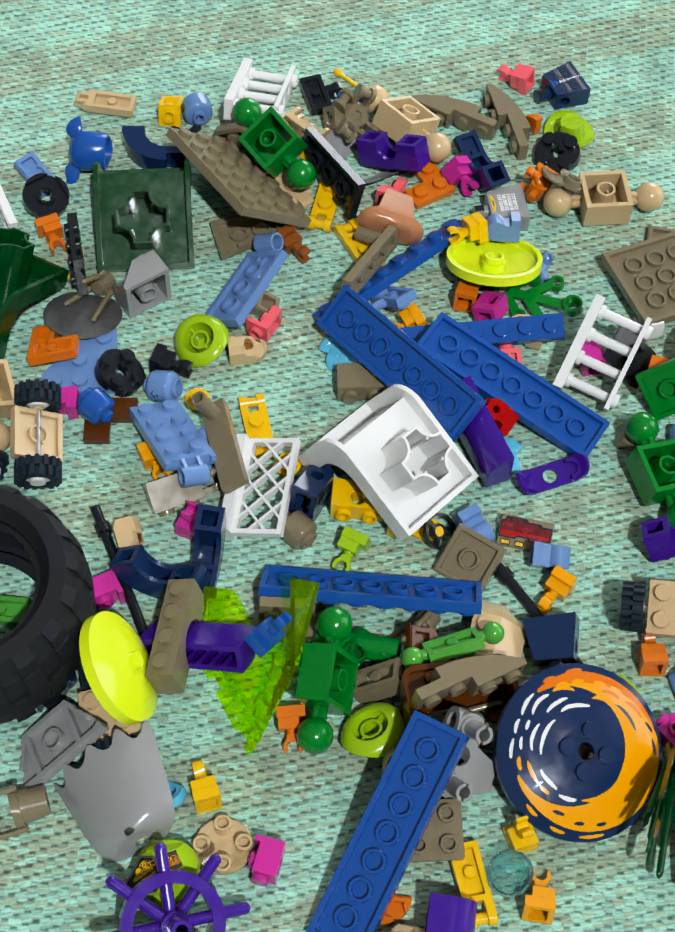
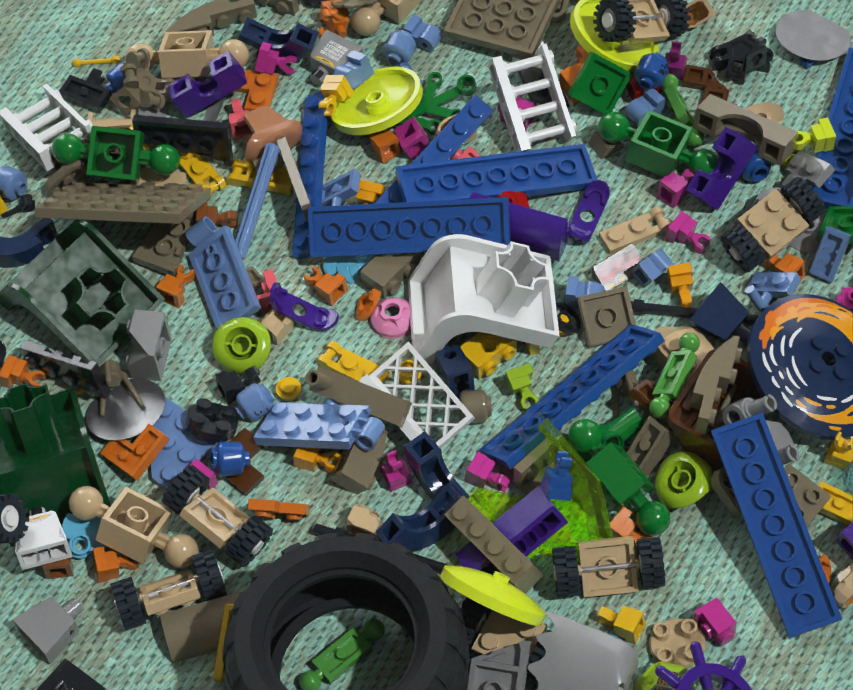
camera: 40 degrees left, 0 degrees up
(82, 465) = (269, 508): none -> orange plate
(208, 265) = (173, 287): none -> orange piece
(240, 736) = (608, 566): none -> plate
(246, 581) = (482, 470): none -> dark pink piece
(260, 335) = (314, 318): none -> dark purple piece
(307, 357) = (327, 286): none -> orange piece
(319, 391) = (367, 304): none -> orange tile
(320, 425) = (391, 326): none -> bright pink piece
(329, 254) = (256, 198): none -> medium blue axle
(558, 240) = (399, 47): none -> medium blue head
(573, 519) = (635, 230): none -> tan plate
(587, 244) = (425, 35): none -> medium blue leg
(608, 553) = (683, 230): none -> dark pink piece
(619, 654) = (771, 285): none -> medium blue plate
(638, 511) = (673, 187): none -> dark pink piece

